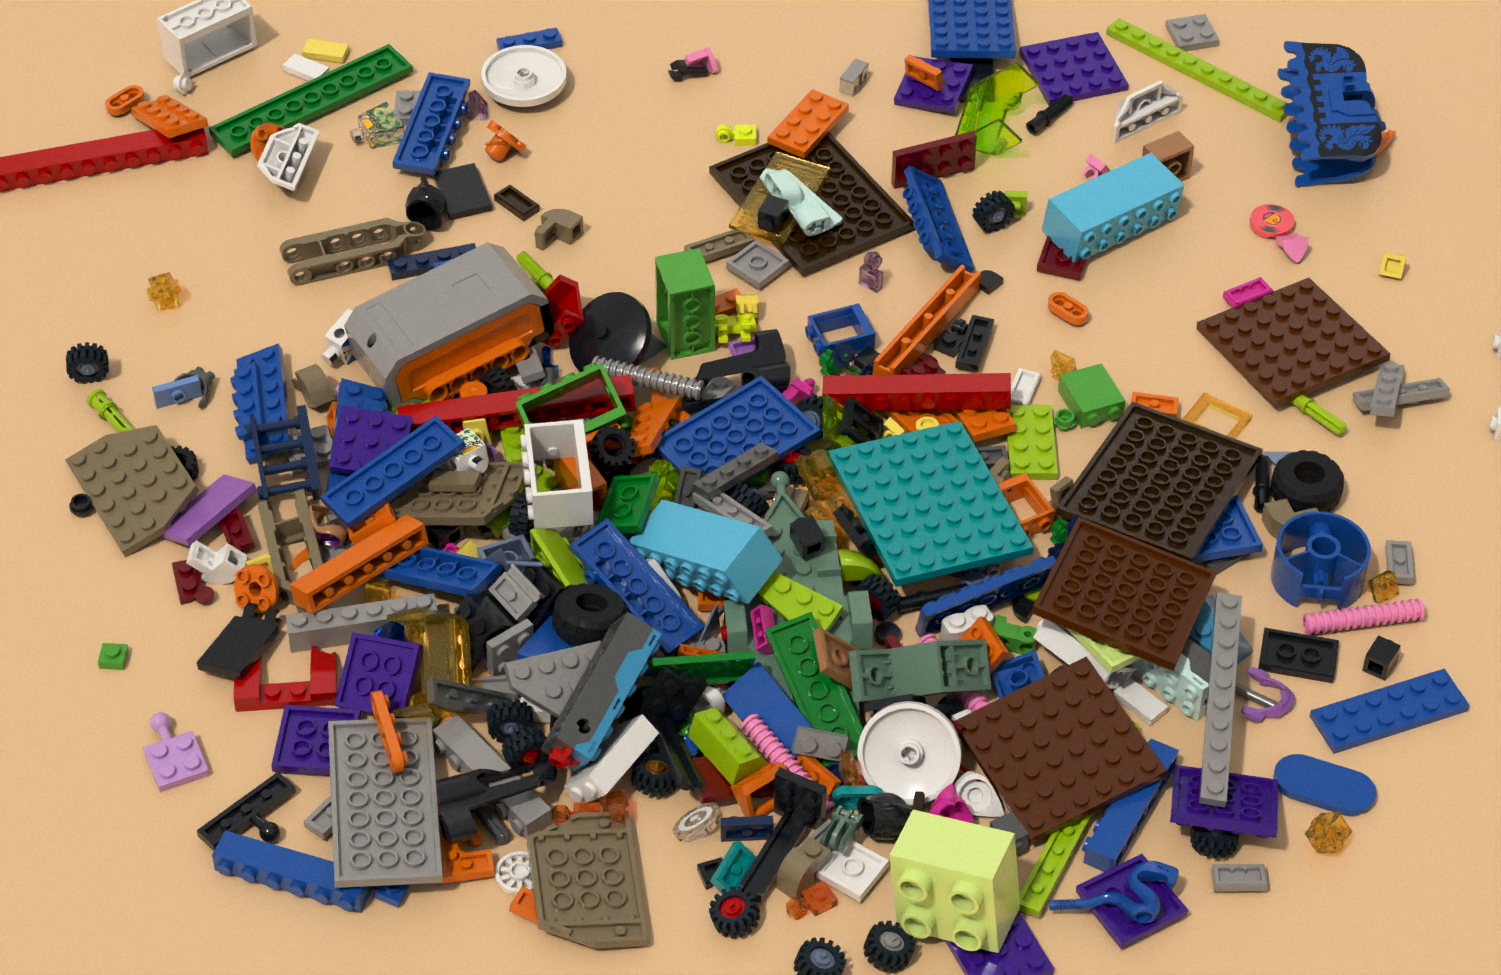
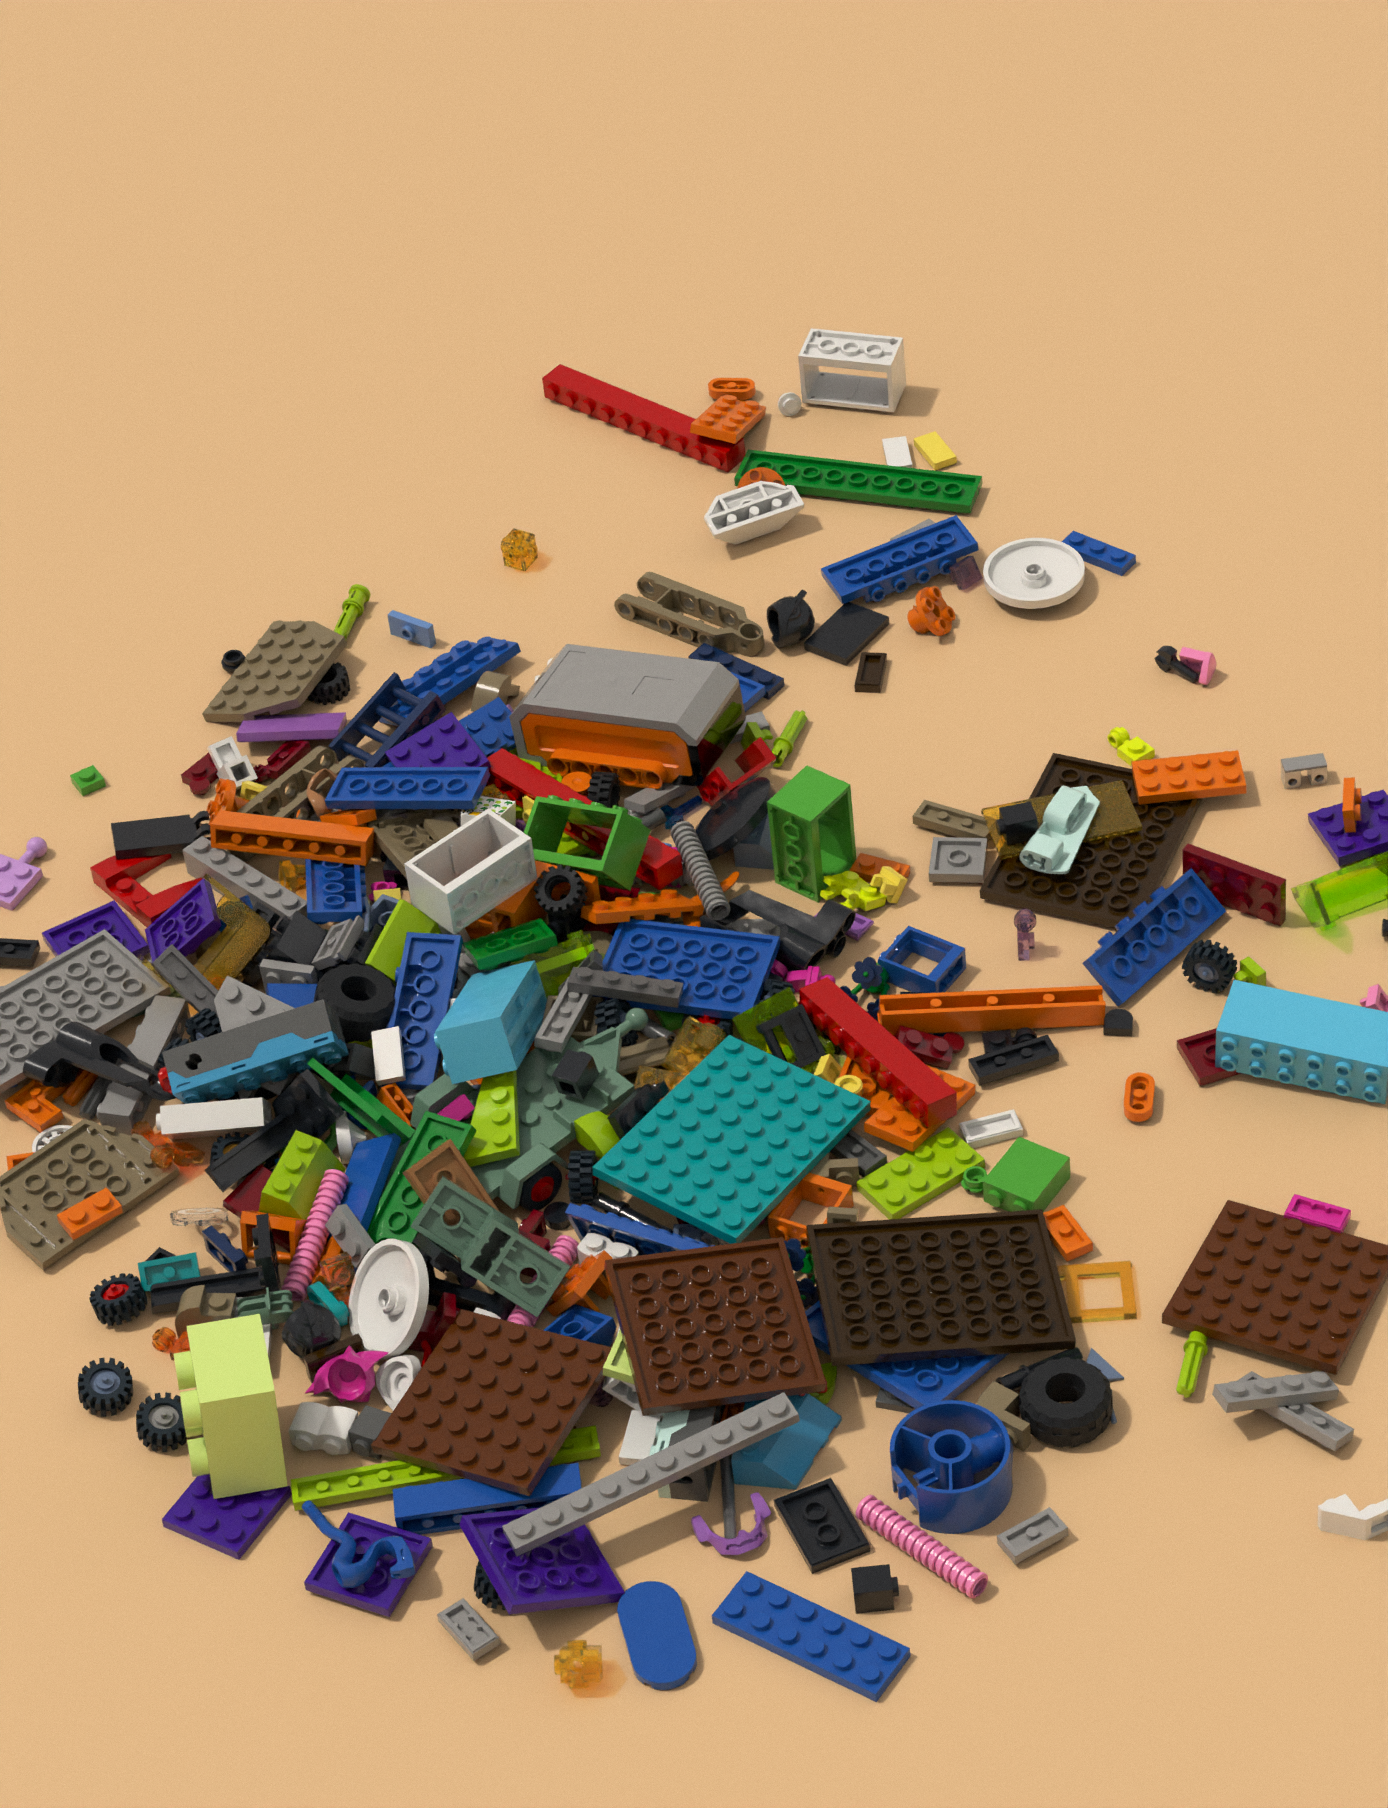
camera: 60 degrees right, 5 degrees down
(87, 363) = (386, 561): black wheel -> none
(205, 382) = (442, 633): dark grey helmet -> none
(378, 127) = (864, 533): clear torso -> none
(386, 724) = (114, 965): orange plate -> none
(558, 224) = (861, 709): dark tan brick -> none
(630, 883) = (89, 1213): none -> orange plate
(671, 634) = (388, 1055): none -> white tile
(1061, 364) = (1047, 1135): clear yellow tile -> none
(1383, 586) = (979, 1539): clear yellow tile -> none

